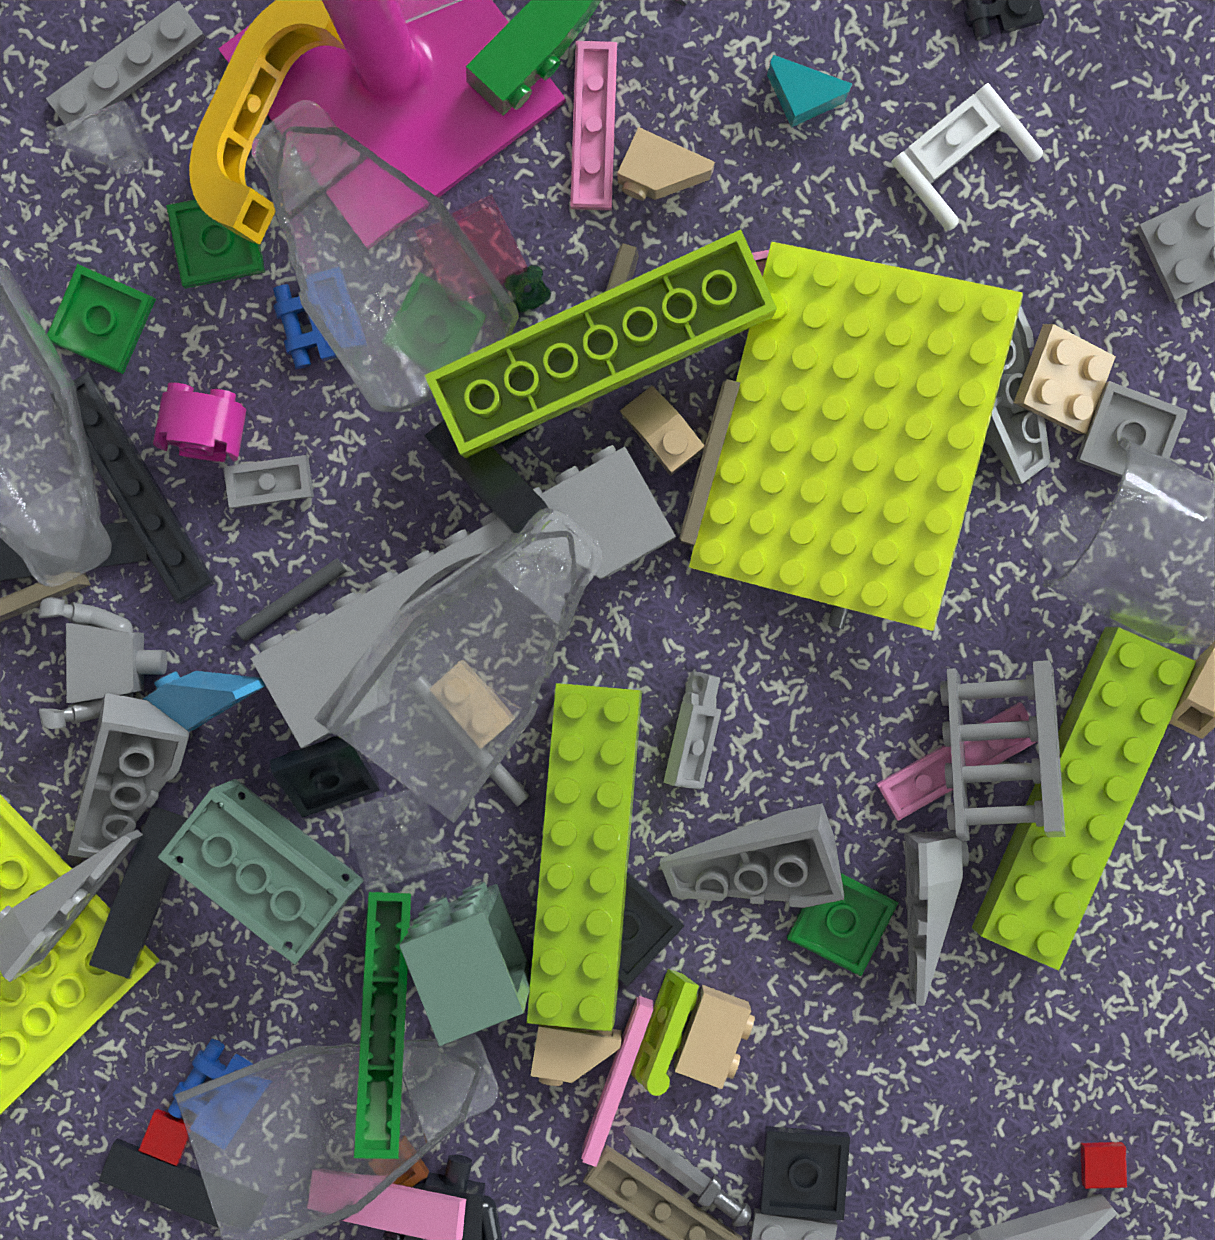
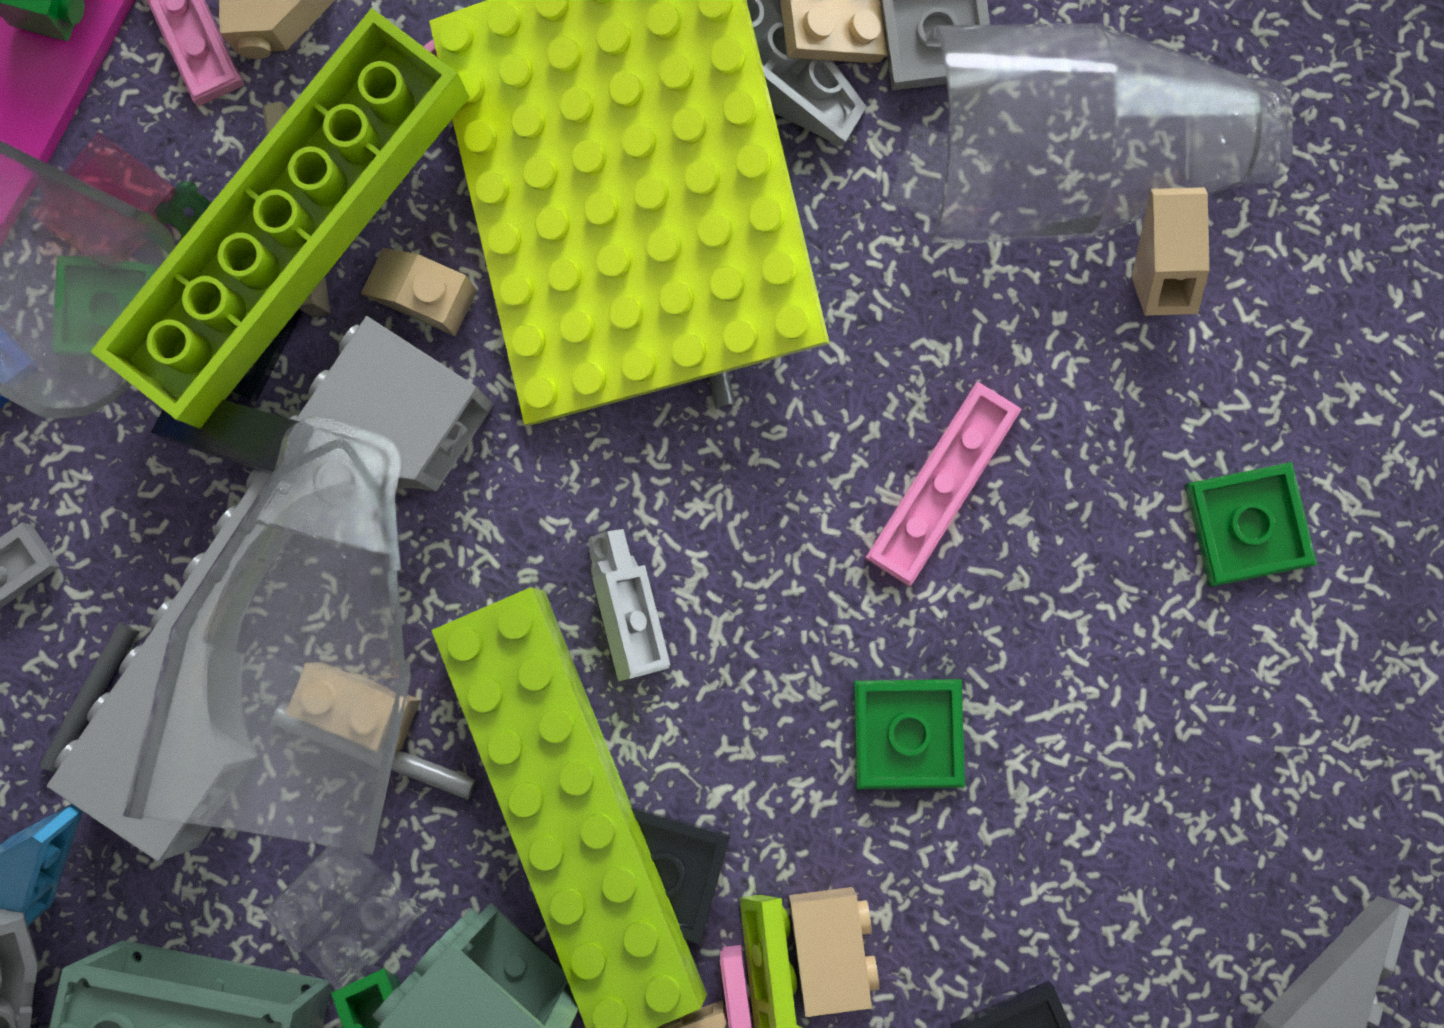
camera: 15 degrees left, 5 degrees down
(324, 775) = (215, 881): black plate -> none
(708, 462) = (484, 297): dark tan tile -> none
(774, 859) = (790, 706): light grey wedge -> none
(932, 887) = (990, 641): light grey wedge -> none
(1042, 770) = (1037, 435): light grey fence -> none
(1103, 762) = (1102, 448): lime brick -> none
(1103, 1165) = (1362, 860): red tile -> none
(1156, 901) = (1250, 524): none -> green tile

